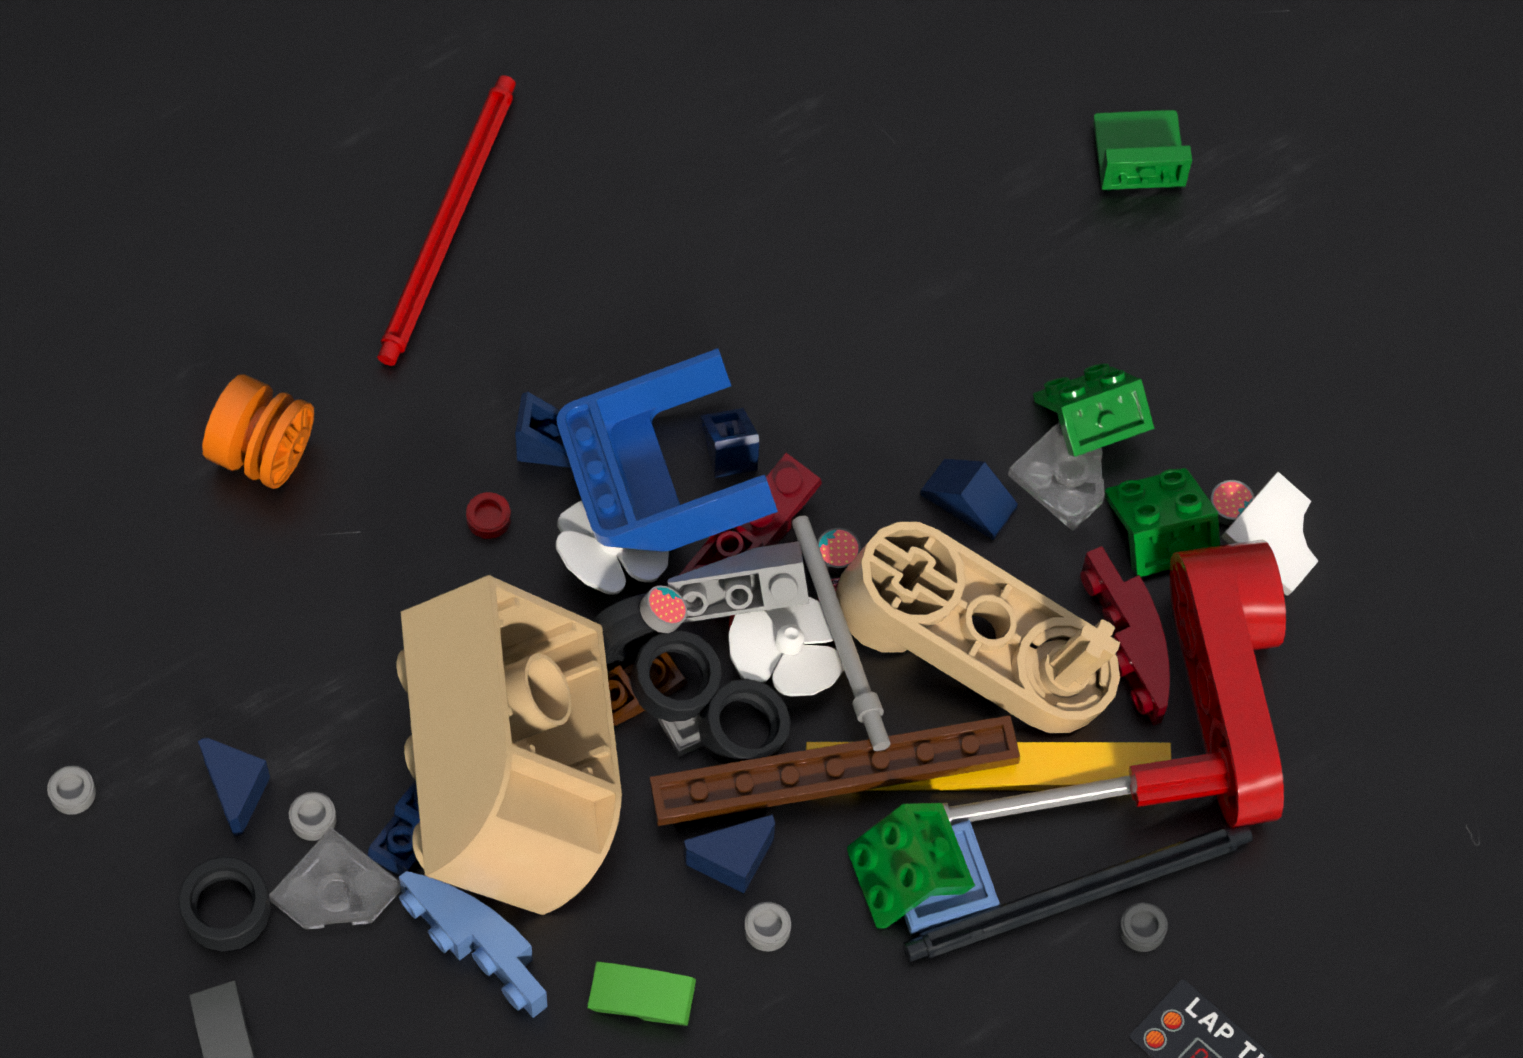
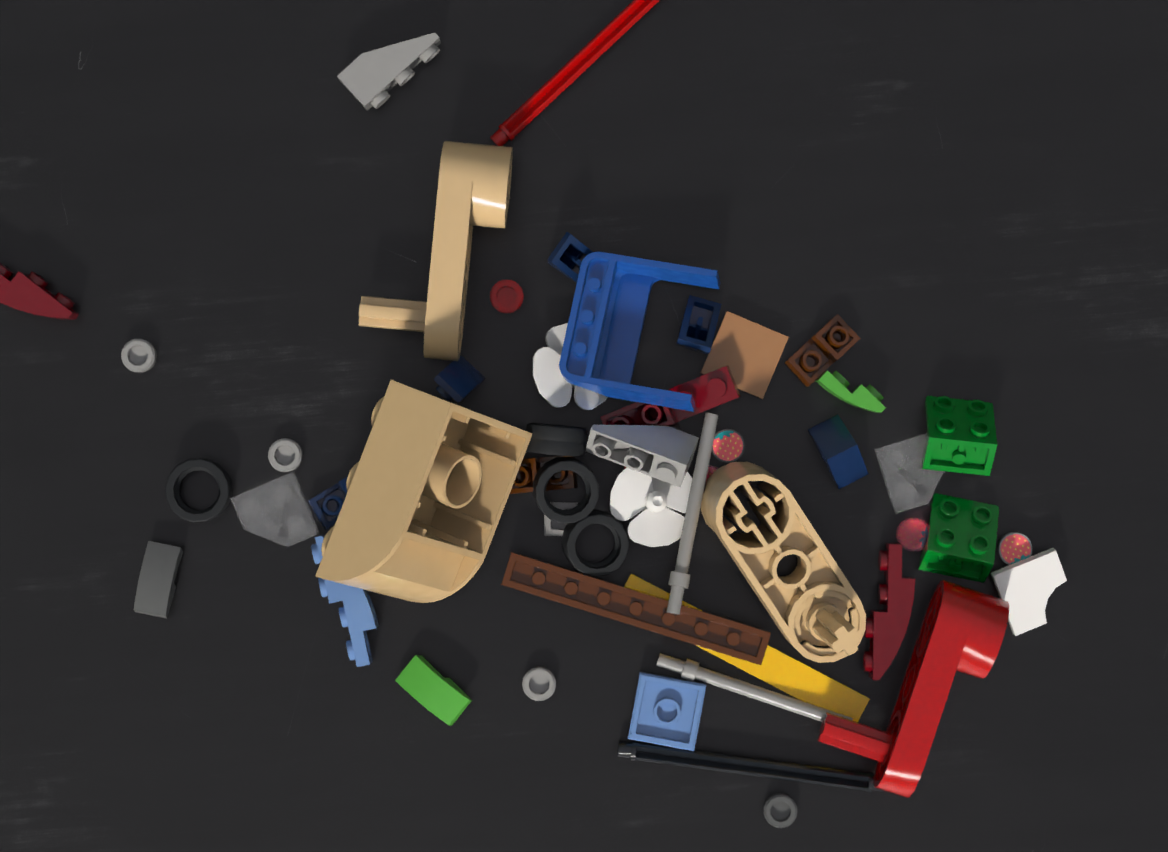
camera: 30 degrees right, 25 degrees up
(210, 342) = (381, 69): none -> light grey slope
(237, 781) = (243, 409): dark blue slope -> none
(258, 431) = (376, 163): orange wheel -> none
(387, 409) = (470, 193): none -> tan beam
(663, 609) = (577, 447): tile -> none
(732, 852) = (541, 627): dark blue slope -> none
(808, 434) = (748, 351): none -> medium nougat tile
(886, 400) = (822, 350): none -> reddish brown slope
(908, 860) = (650, 697): green bracket -> none
(963, 425) = (860, 397): none -> bright green slope
(1112, 538) = (912, 534): none -> clear pink tile
(1141, 150) = (1112, 247): green bracket -> none

